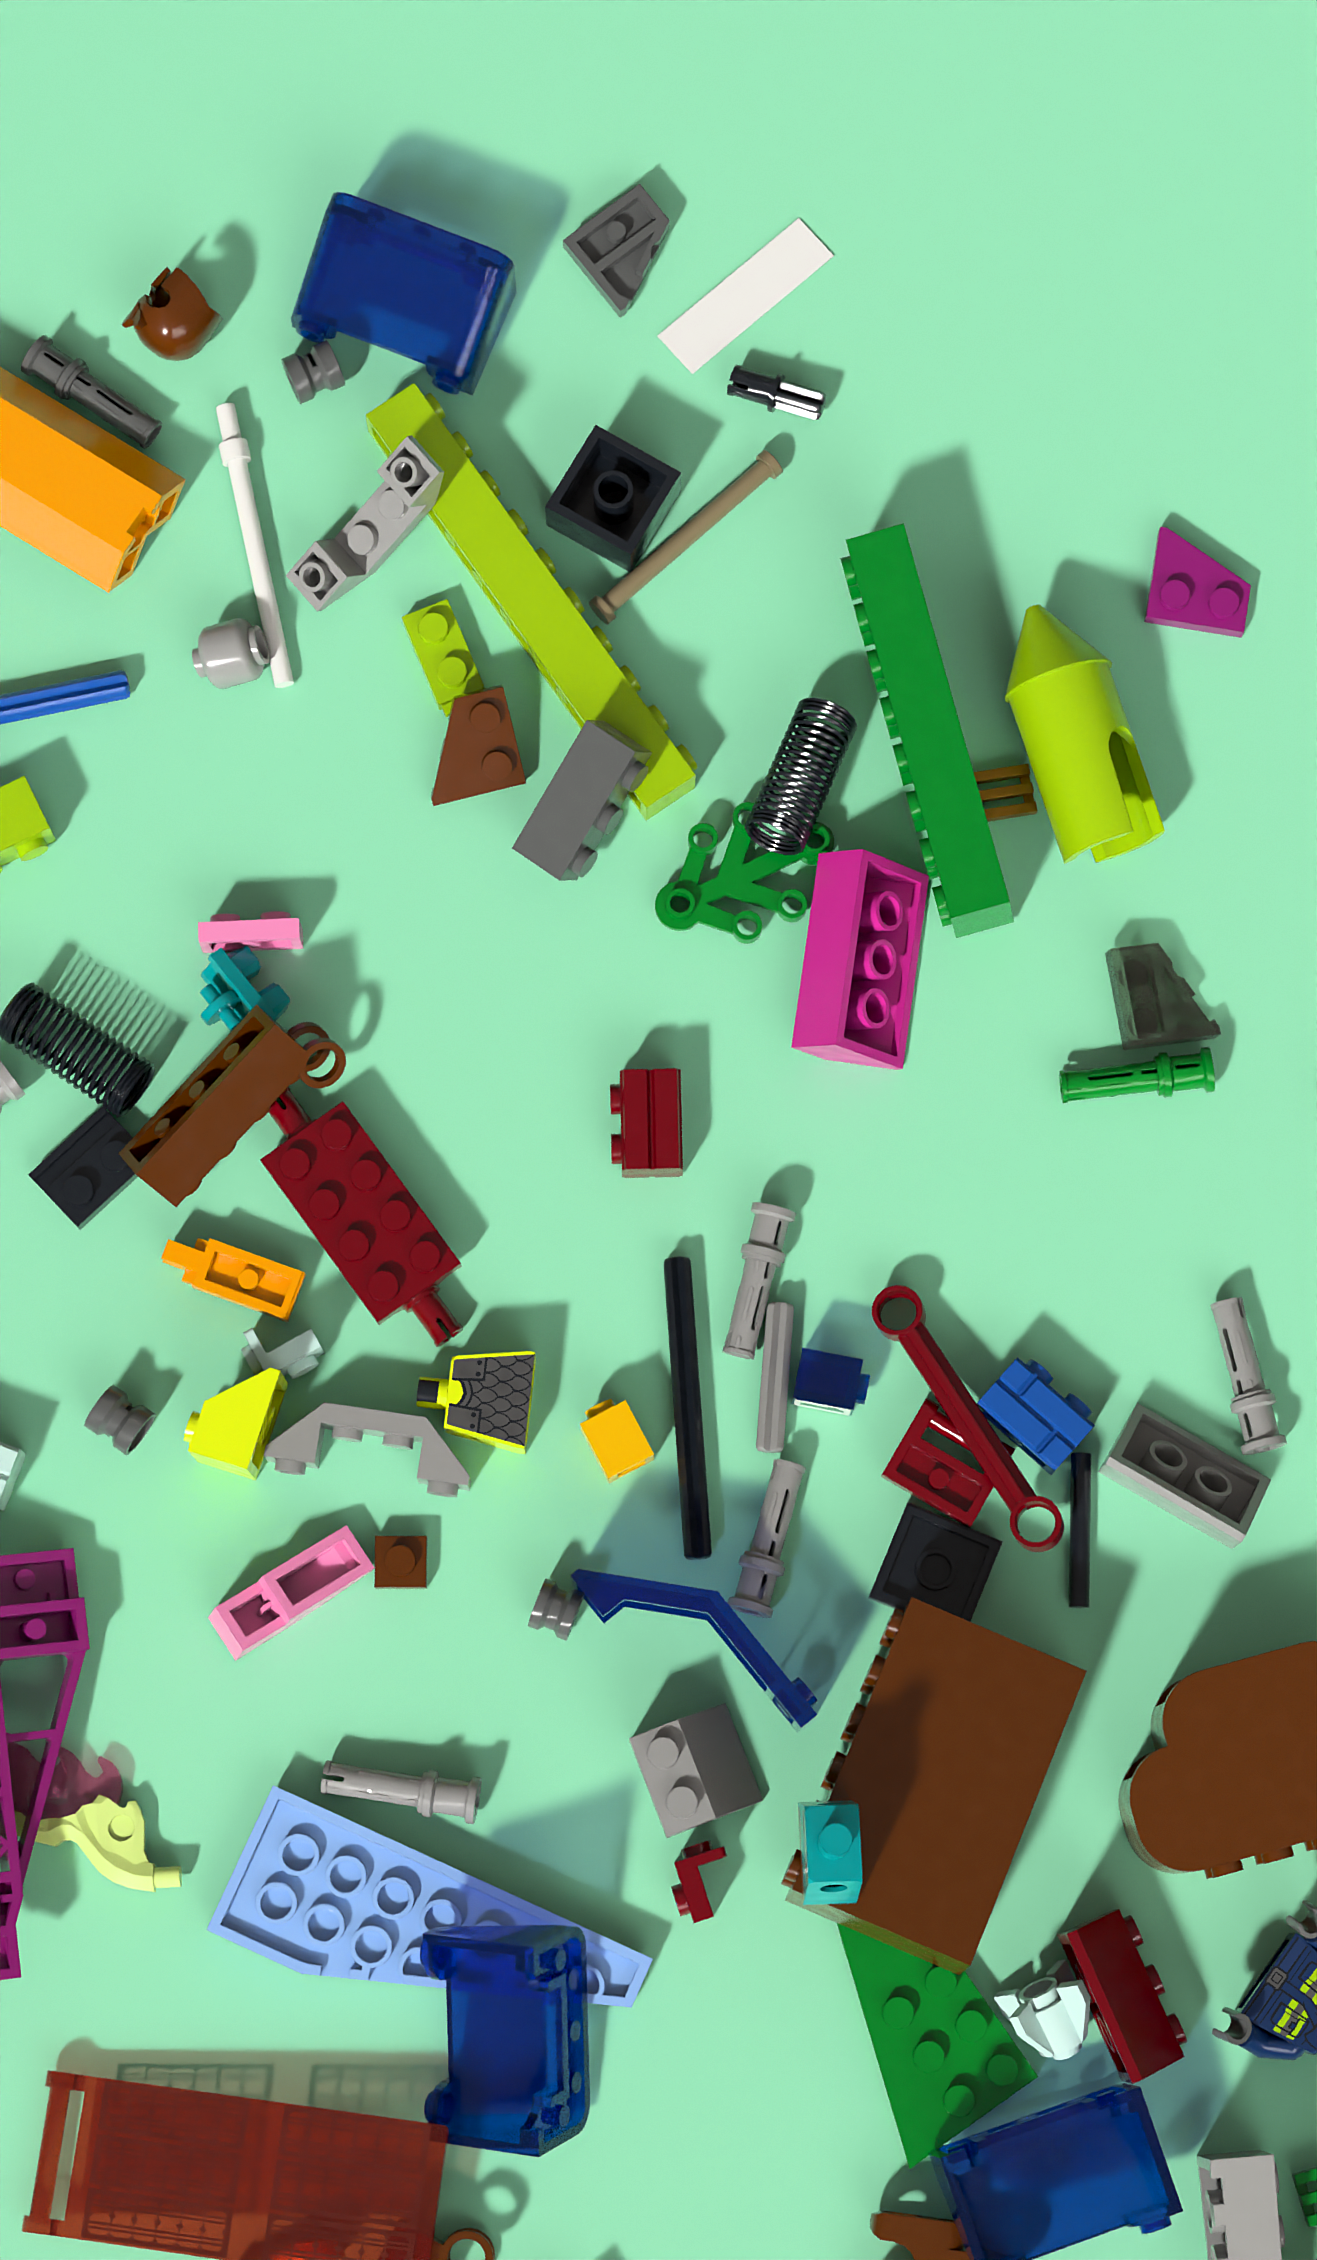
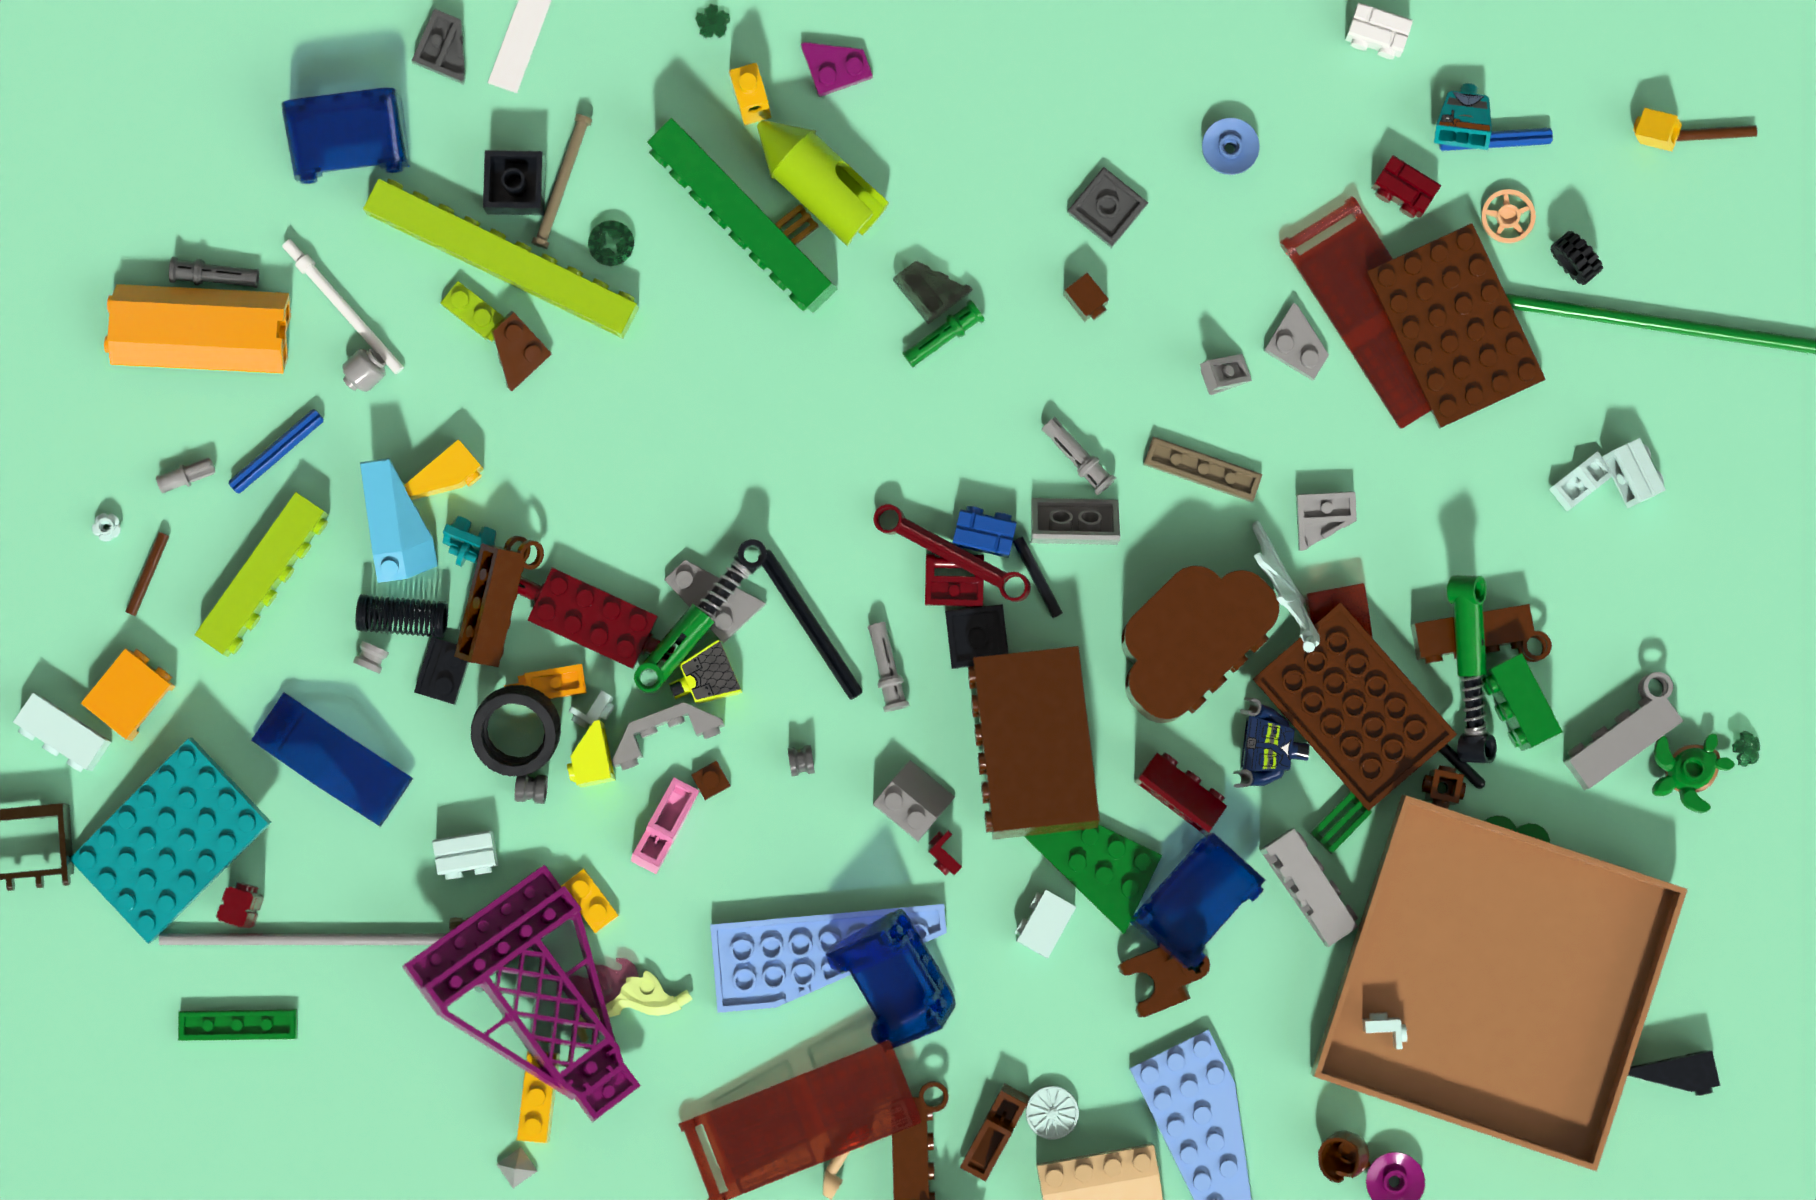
camera: 30 degrees left, 5 degrees up
(85, 1320) = (496, 759): none -> black tyre
(113, 1652) = (593, 903): none -> yellow plate
(140, 919) = (397, 532): none -> medium azure wedge
(173, 317) = (233, 211): reddish brown helmet -> none
(264, 872) = (445, 473): none -> yellow slope
(271, 932) = (466, 501): bright pink plate -> none
(313, 372) = (321, 200): dark grey wheel -> none
(375, 531) = (401, 267): light grey slope -> none
(427, 1793) = (788, 886): light grey pin -> none
(518, 1302) = (697, 619): none -> piece
(560, 1288) = (693, 583): none -> light grey wing
(583, 801) = (587, 348): dark grey brick -> none
(611, 1593) = (823, 738): clear blue windscreen -> none
(616, 1439) = (783, 660): yellow brick -> none
(649, 1123) = (712, 493): dark red brick -> none
(725, 654) = (615, 230): none -> clear green gear
(734, 881) = (687, 343): green plant -> none
(761, 1258) = (805, 528): light grey pin -> none
(775, 1377) = (845, 585): light grey axle -> none
(776, 393) = (566, 80): black axle -> none
(781, 818) = (681, 245): black piece -> none
(795, 2080) = (1045, 923): none -> light aqua brick
(829, 1382) = (874, 573): clear blue brick -> none
(830, 1852) = (1002, 803): teal torso -> none
(860, 959) = (771, 351): dark pink slope -> none
(1042, 554) = (750, 93): none -> yellow torso
(1044, 426) = (712, 22): none -> clear green plant
(1049, 2012) = (1150, 821): light aqua brick -> none

